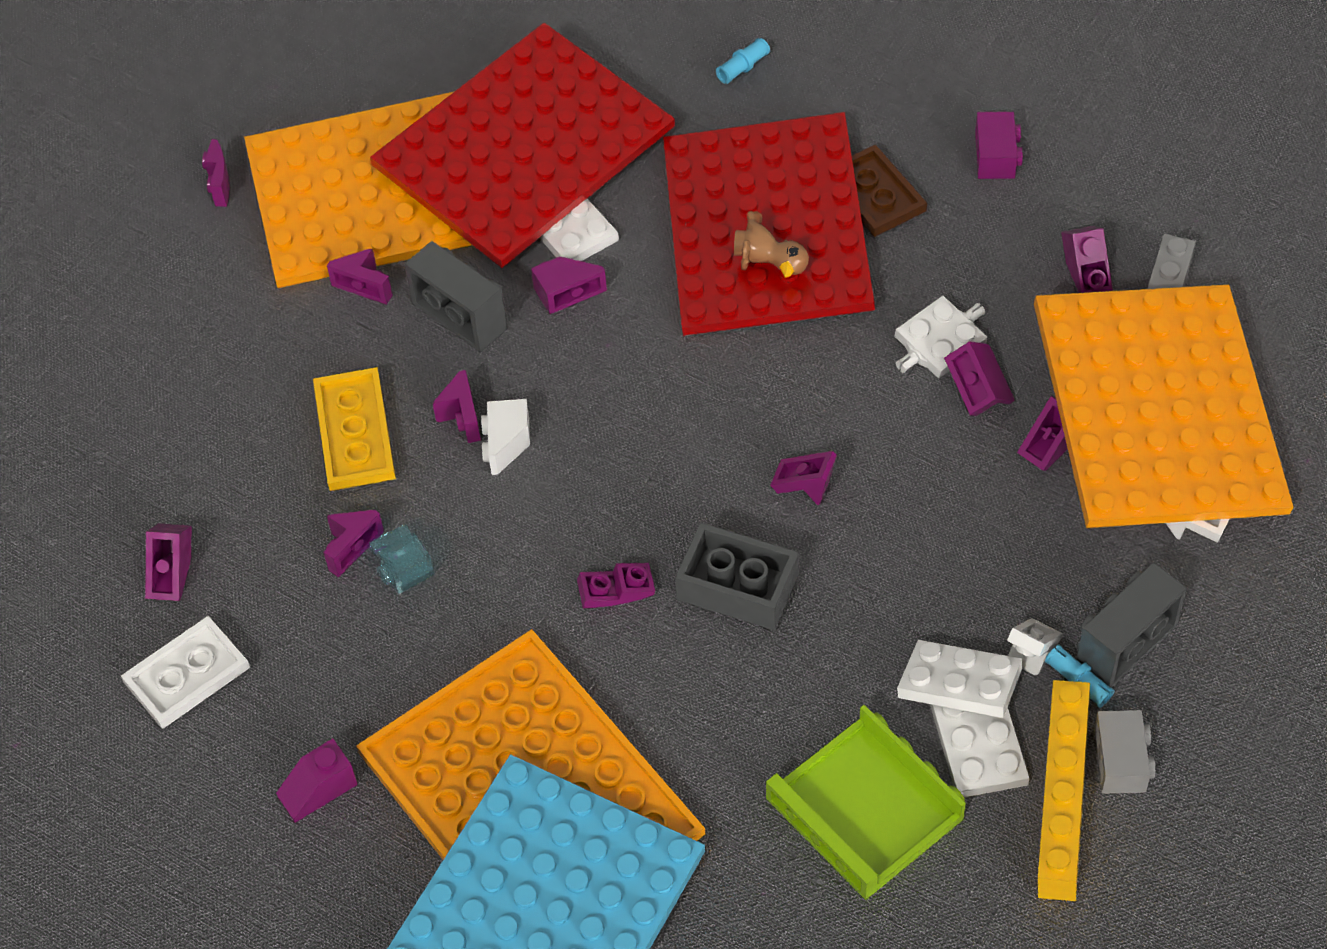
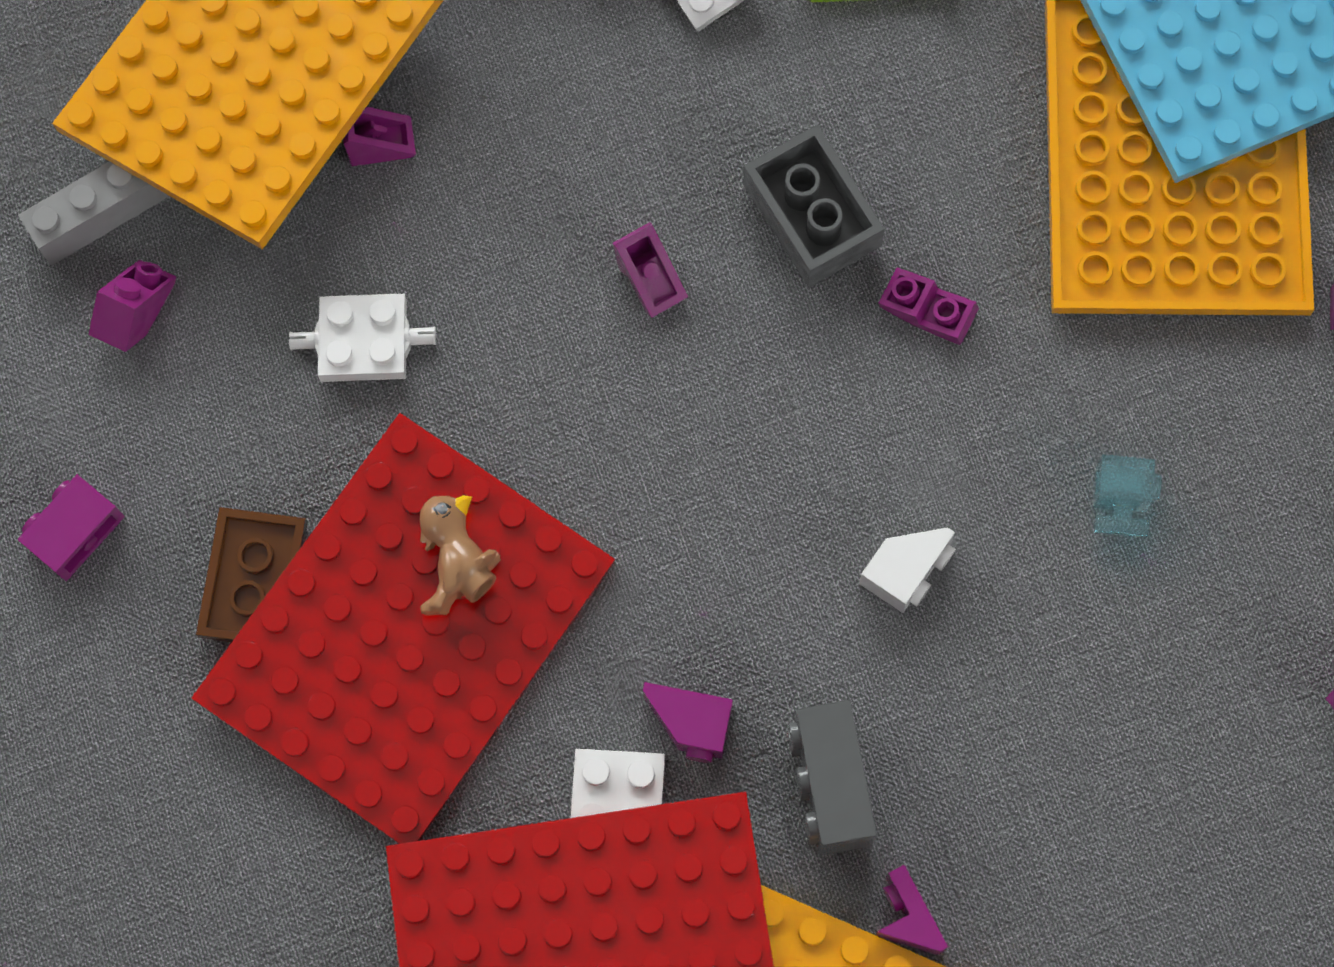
camera: 140 degrees left, 20 degrees up
(352, 535) = (1150, 560): magenta slope -> none
(353, 429) = (1062, 705): yellow plate -> none
(457, 404) = (924, 647): magenta slope -> none
(742, 60) = (220, 895): medium azure pin -> none
(978, 377) = (378, 247): magenta panel -> none

